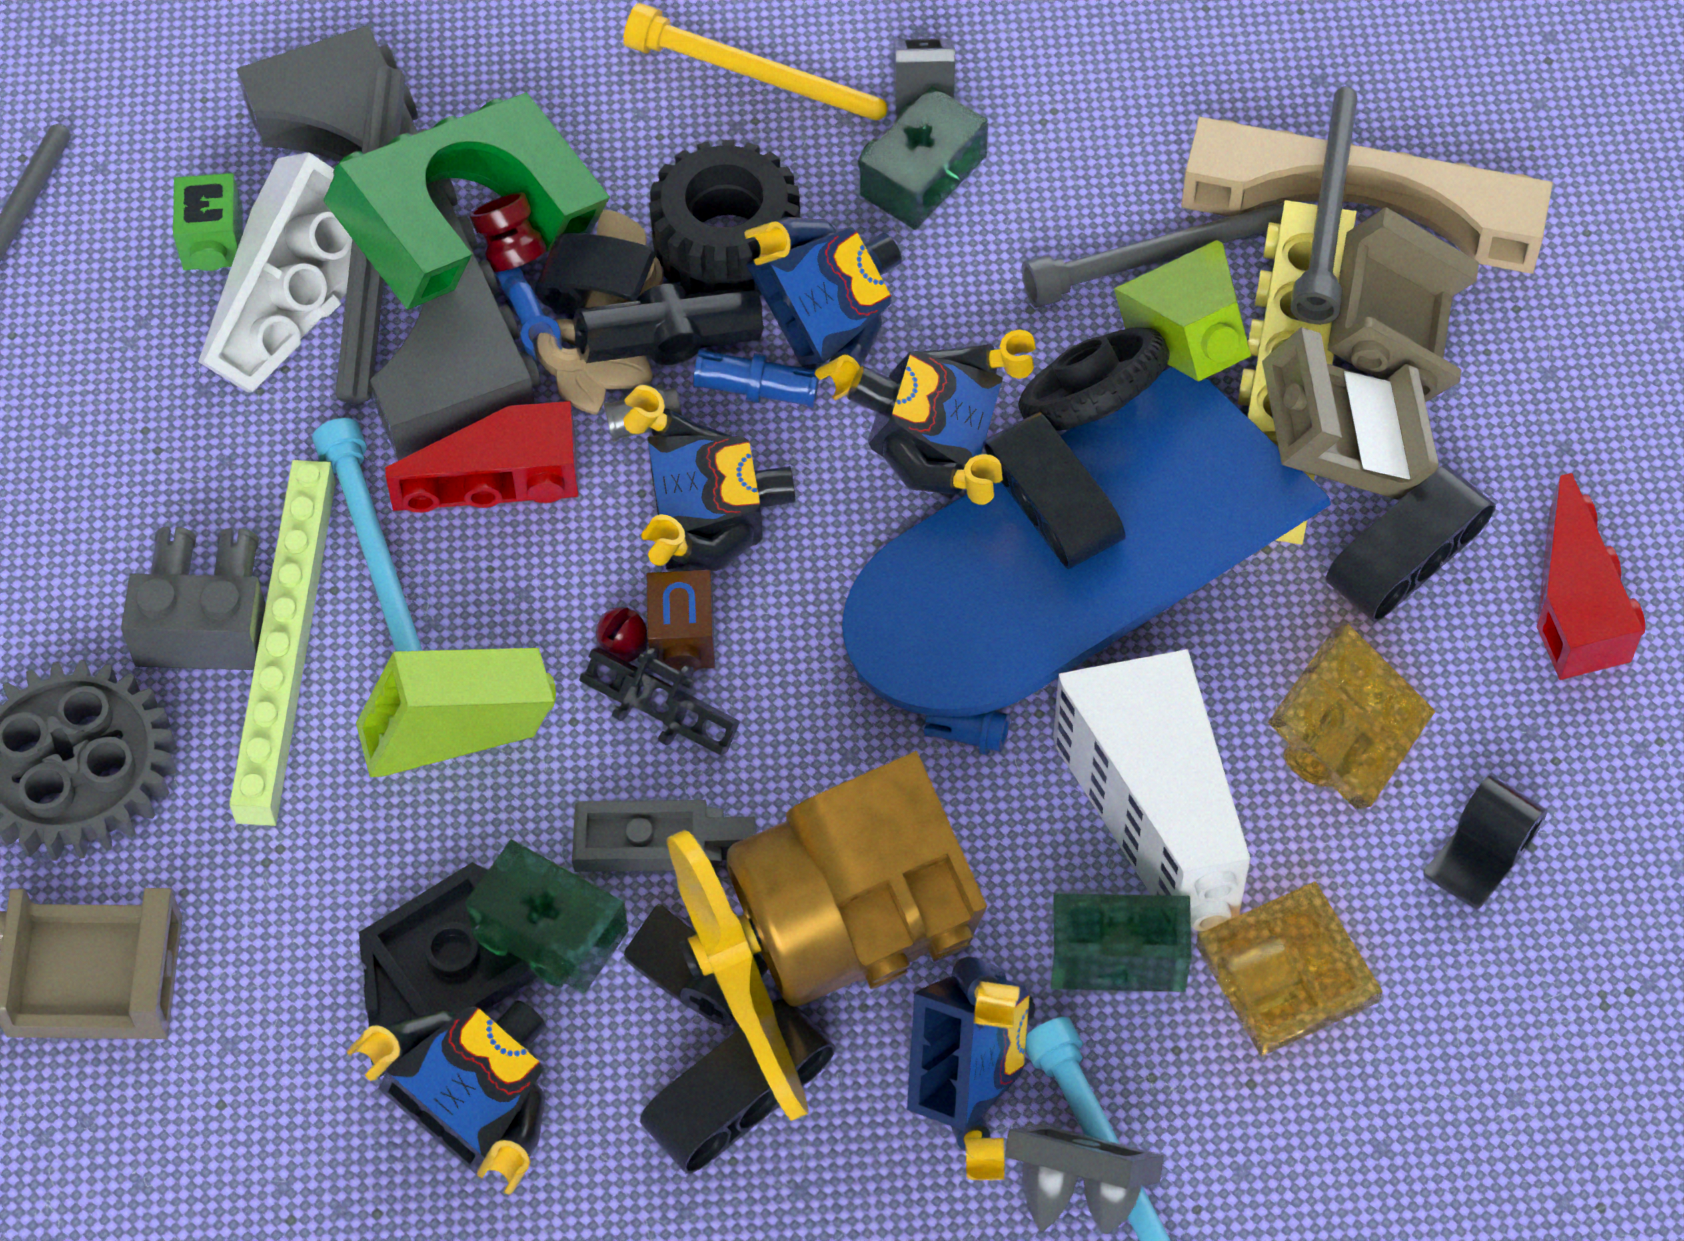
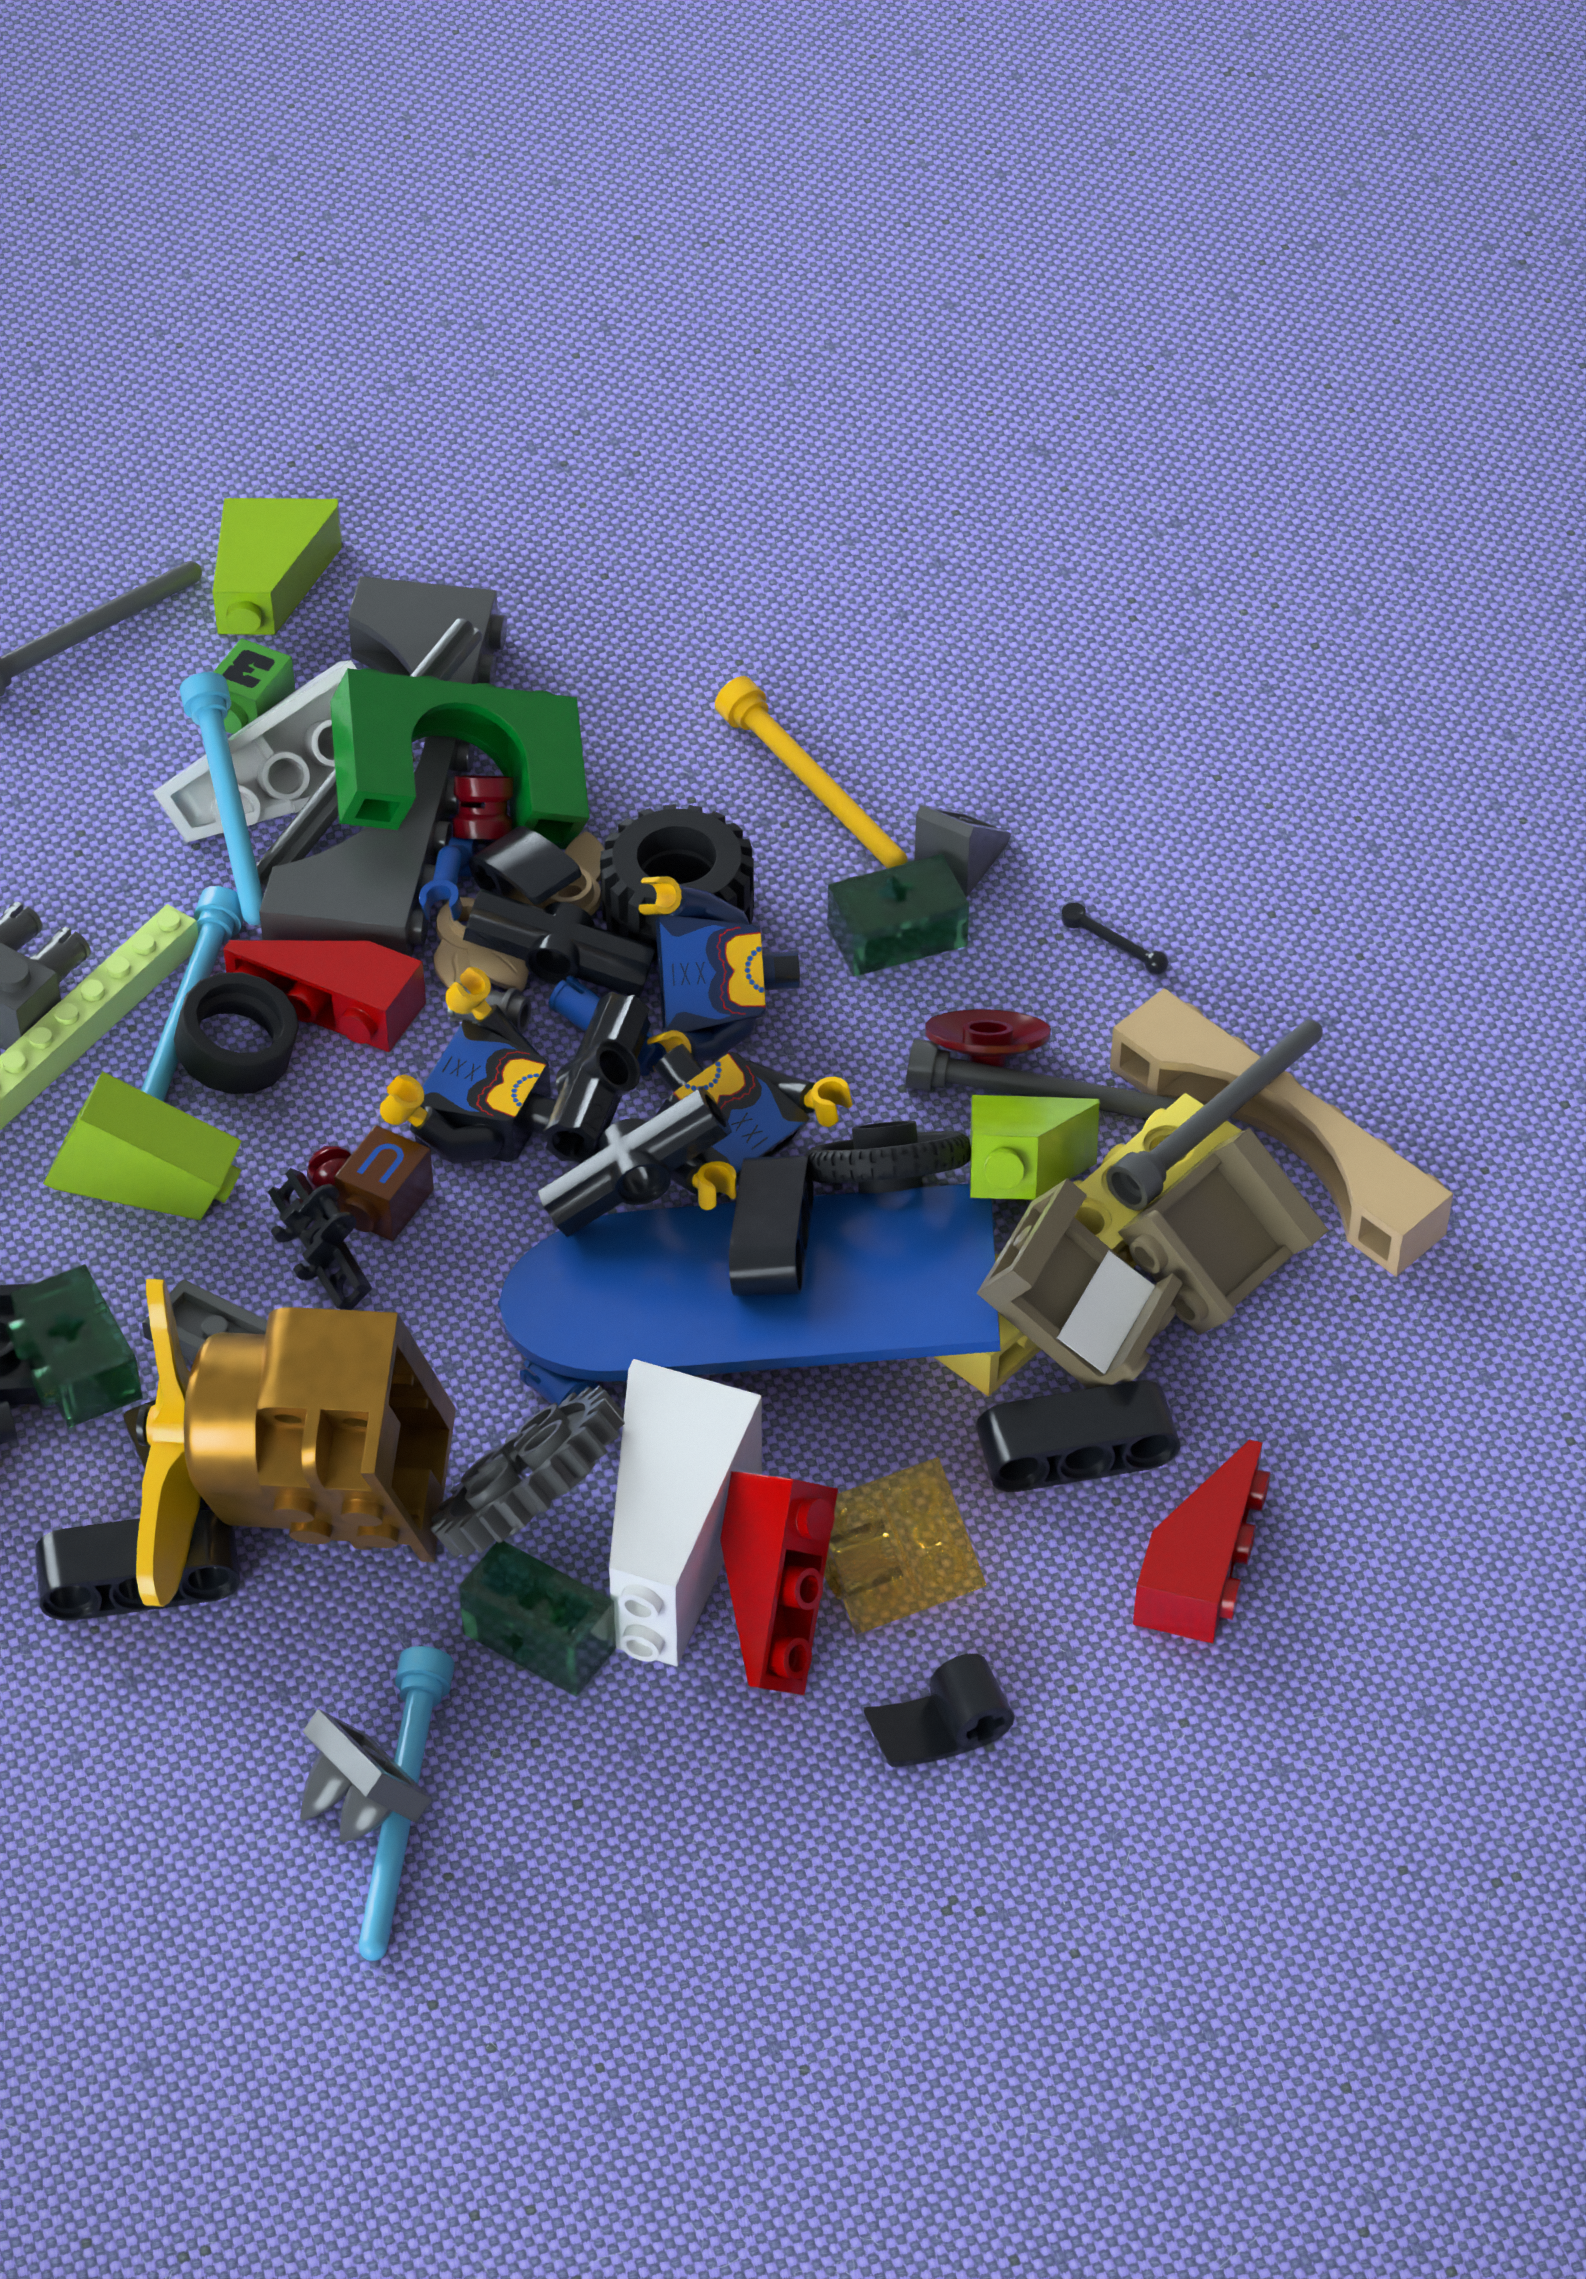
camera: 30 degrees right, 10 degrees down
(127, 90) = (270, 559): none -> lime slope
(202, 253) = (206, 701): none -> medium azure piece
(453, 511) = (224, 1068): none -> black tyre
(807, 432) = (597, 1077): none -> black piece
(902, 492) = (634, 1161): none -> black piece
(967, 1054) = (335, 1630): dark blue torso -> none
(1051, 773) = (496, 1493): none -> dark grey gear
(1055, 87) = (1075, 916): none -> black hinge
(1078, 225) = (987, 1034): none -> dark red dish
(1283, 786) = (775, 1570): none -> red slope
(1288, 968) = (675, 1722): clear yellow plate -> none

